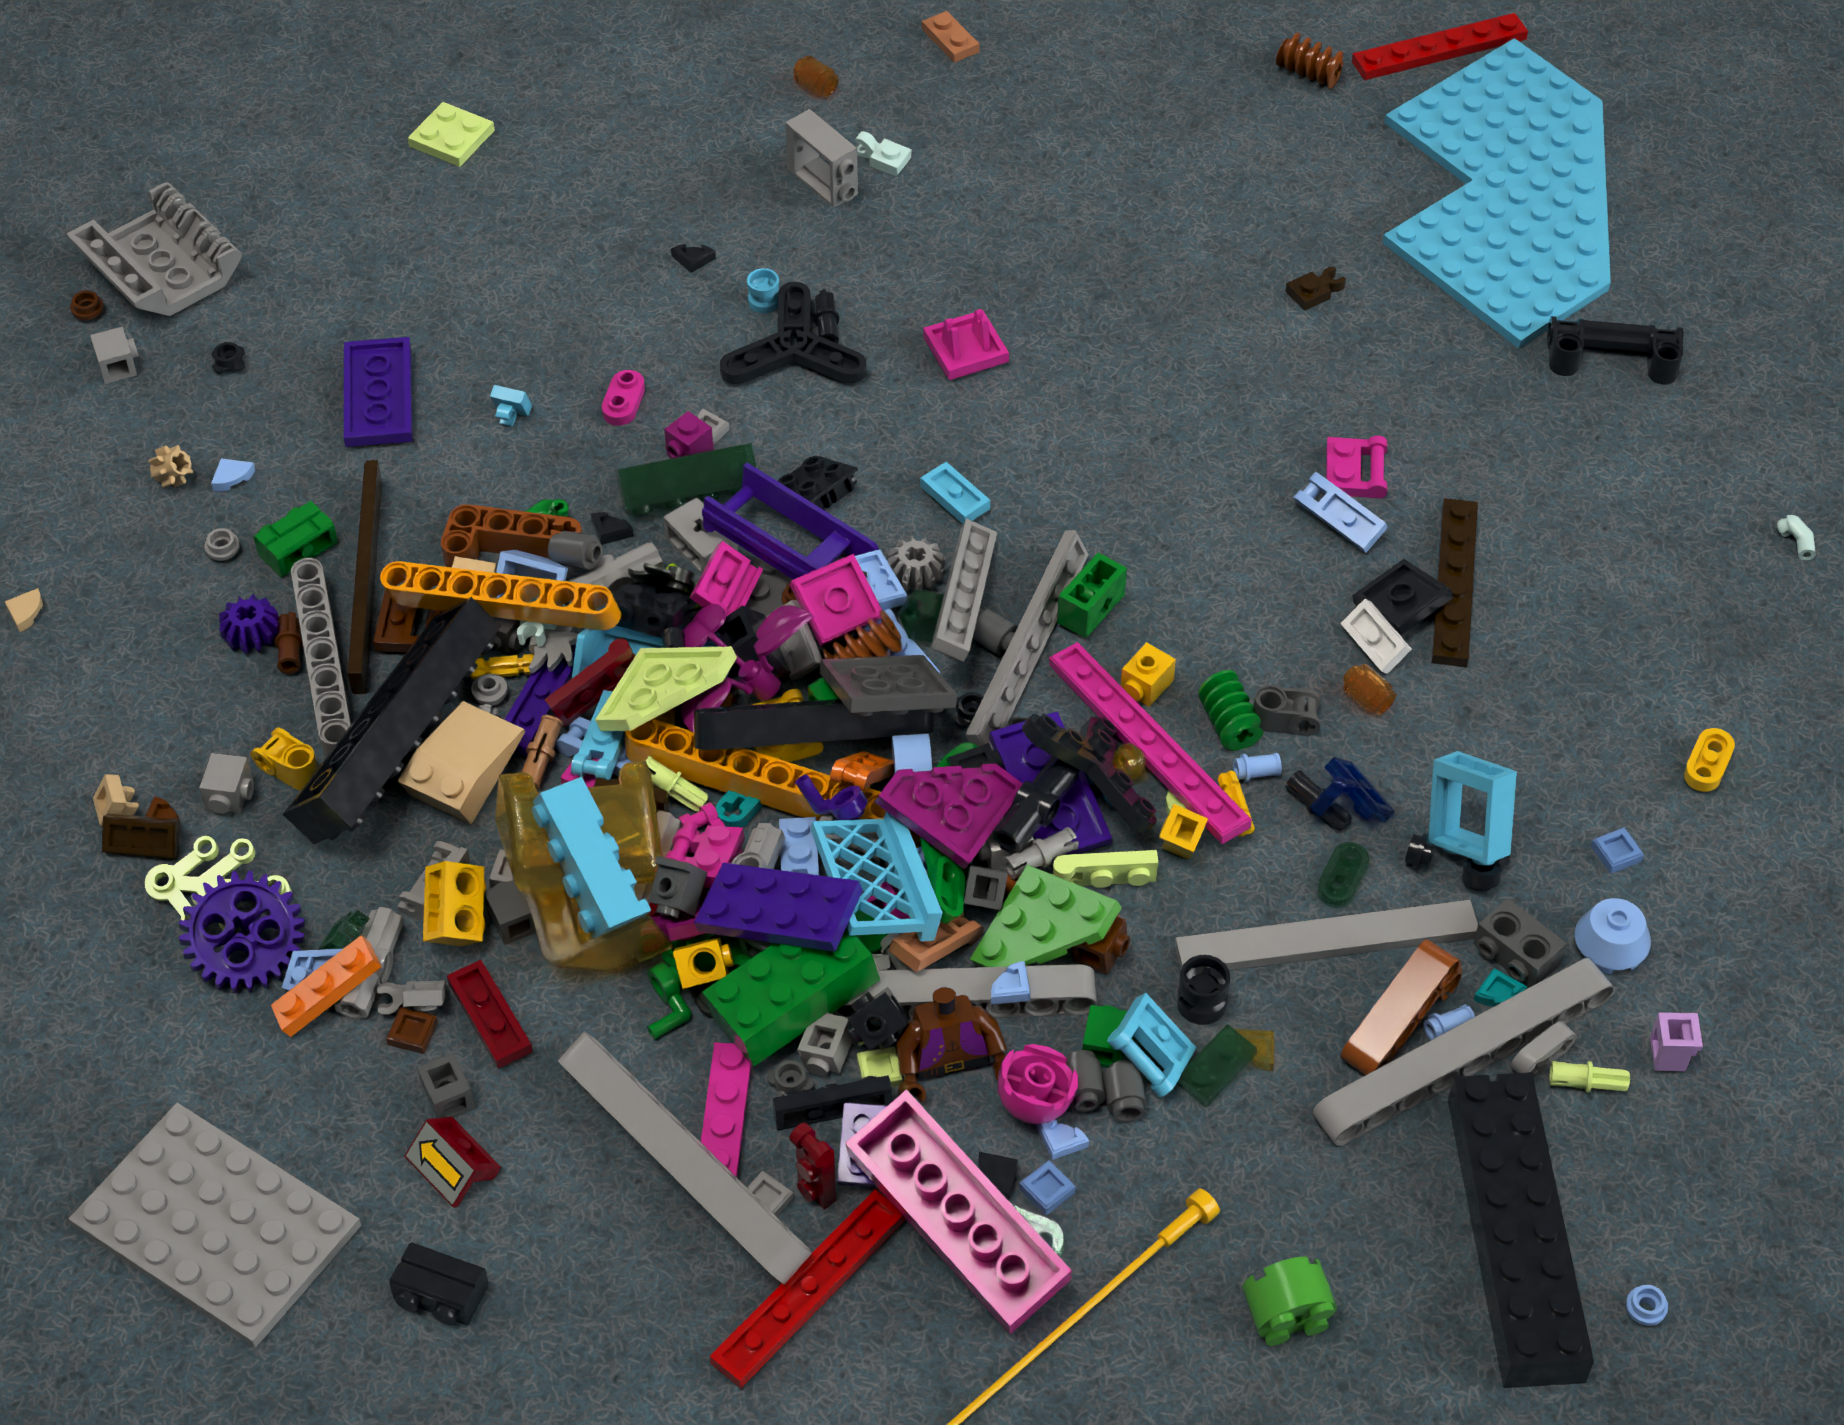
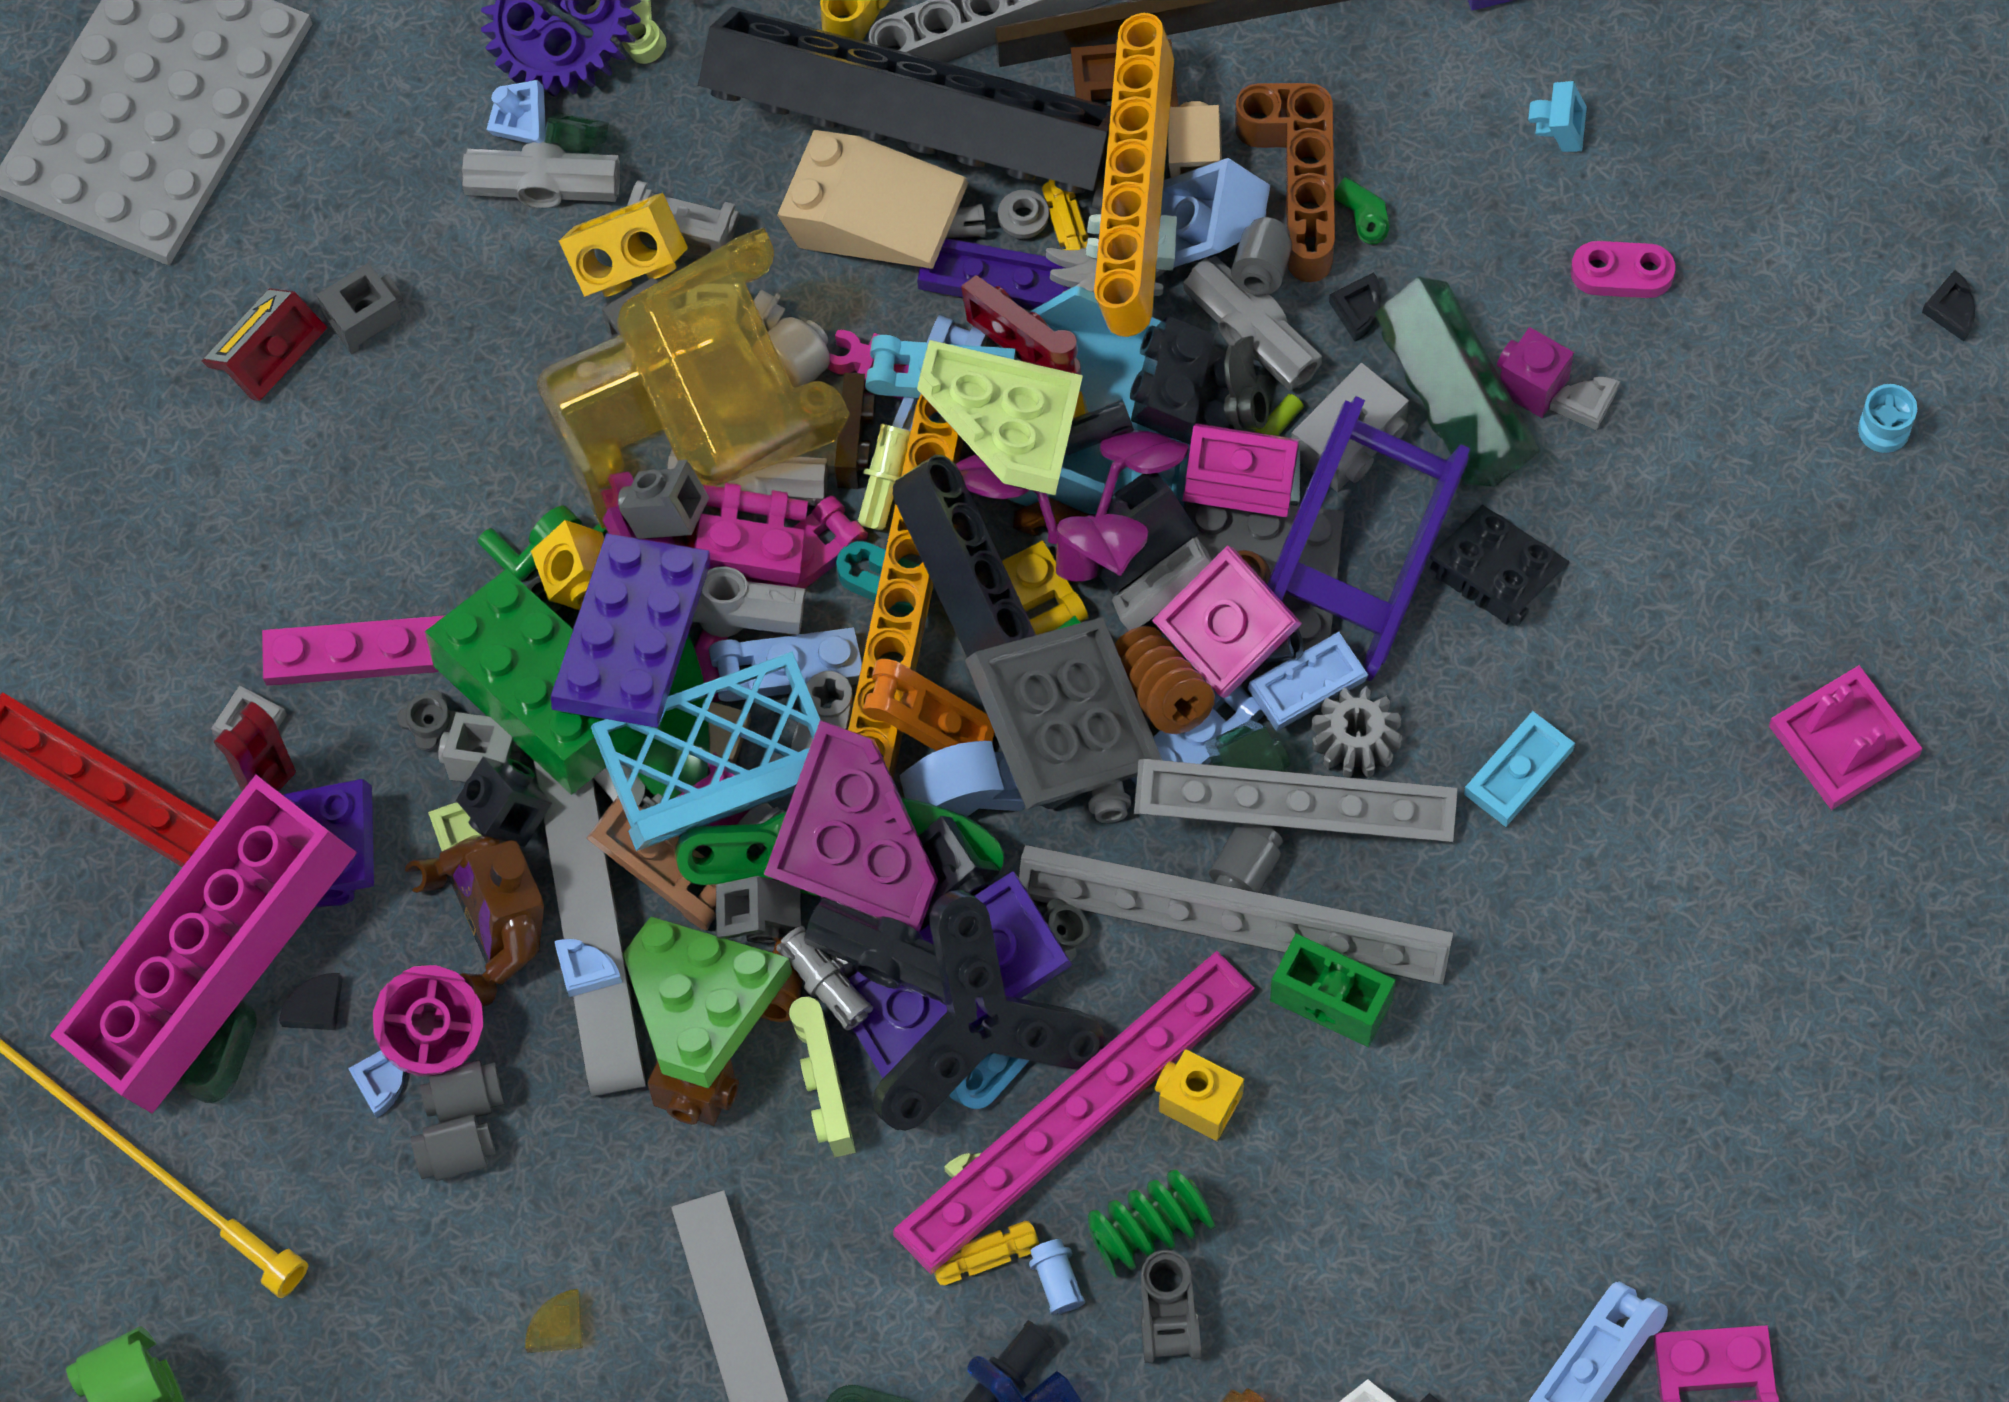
camera: 85 degrees right, 15 degrees up
(325, 986) = (484, 130): orange plate -> none
(412, 1030) = (454, 252): reddish brown tile -> none
(420, 994) = (498, 244): light grey plate -> none
(438, 1284) = (78, 365): black brick -> none
(489, 1014) = (483, 334): dark red plate -> none
(541, 749) = (913, 299): medium nougat pin -> none
(587, 858) = (651, 374): medium azure wedge -> none
(685, 1158) = (275, 603): light grey beam -> none
(776, 352) = (1775, 516): black piece -> none
(826, 317) = (1856, 522): black axle -> none
(829, 1101) = (394, 774): black plate -> none
(845, 805) = (842, 693): dark purple plate -> none
(964, 704) = (1102, 842): black plate -> none
(1047, 1187) = (301, 1070): medium blue tile -> none
(1100, 1024) = (539, 1112): green brick -> none
(1130, 760) = (1029, 1088): clear yellow plate -> none
(1159, 1037) = (533, 1178): medium azure plate -> none
(1182, 831) = (894, 1171): yellow brick -> none
(1203, 989) = (625, 1232): black wheel -> none
(1216, 1065) = (512, 1268): clear green plate -> none

